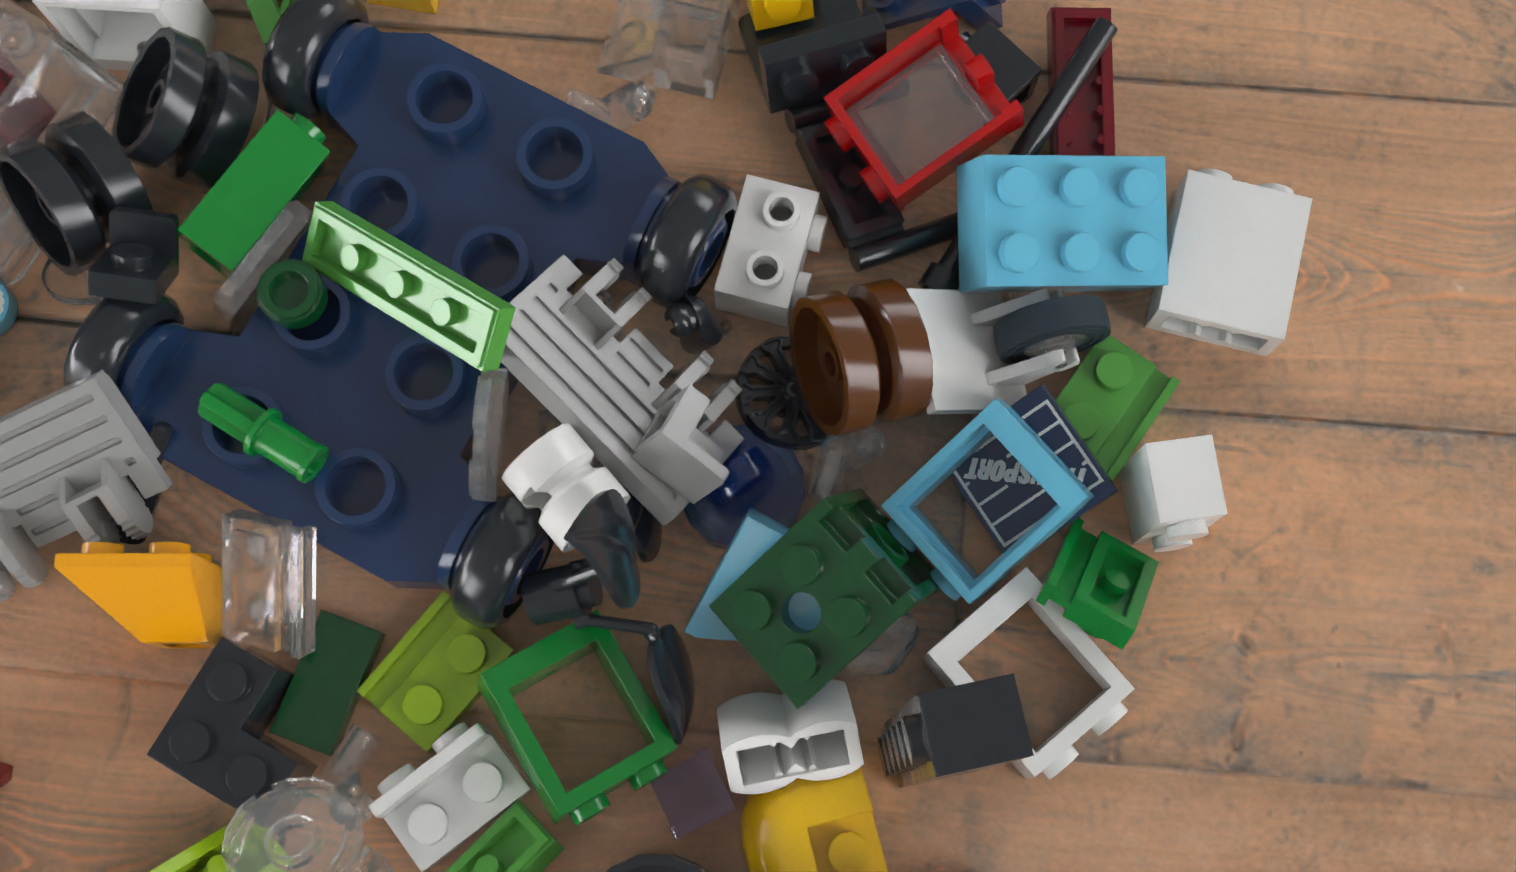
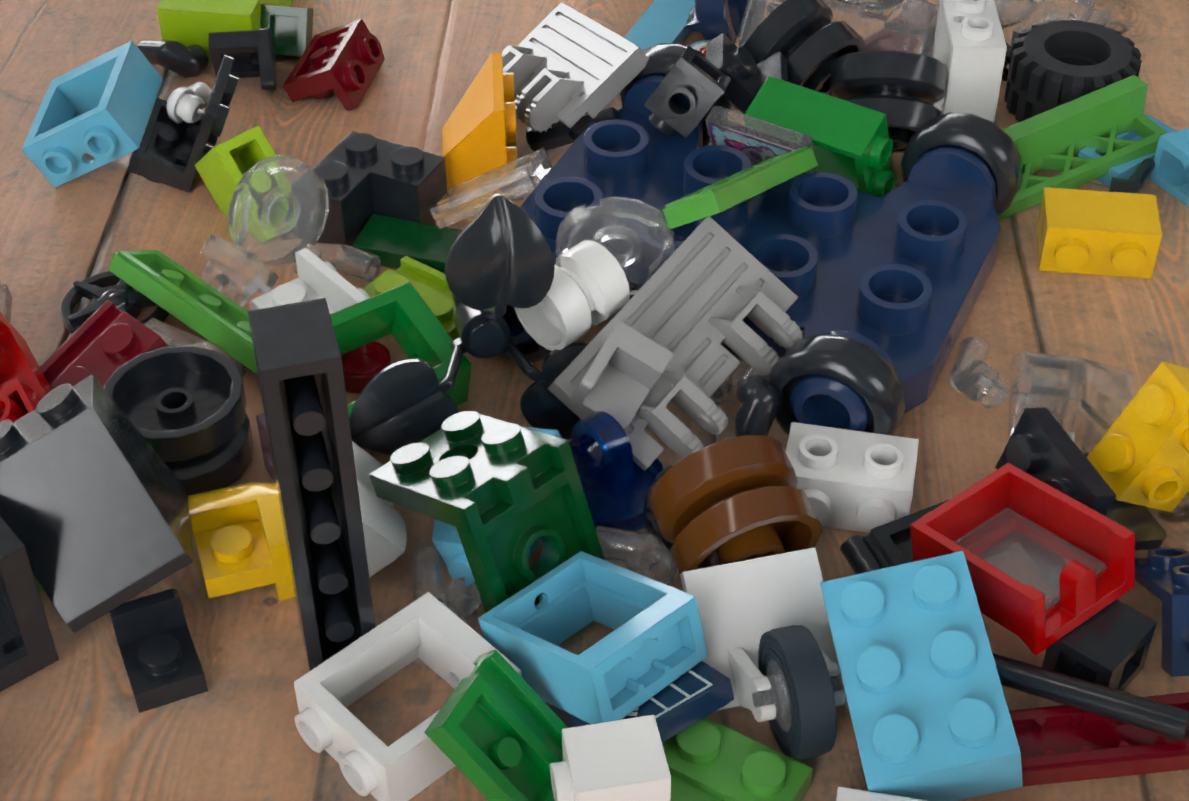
camera: 85 degrees right, 35 degrees down
(184, 329) = (698, 81): none -> black brick
(263, 432) = (604, 138): green axle -> none
(292, 294) = (729, 147): dark green tile -> none
(548, 730) = (363, 364): none -> dark red tile

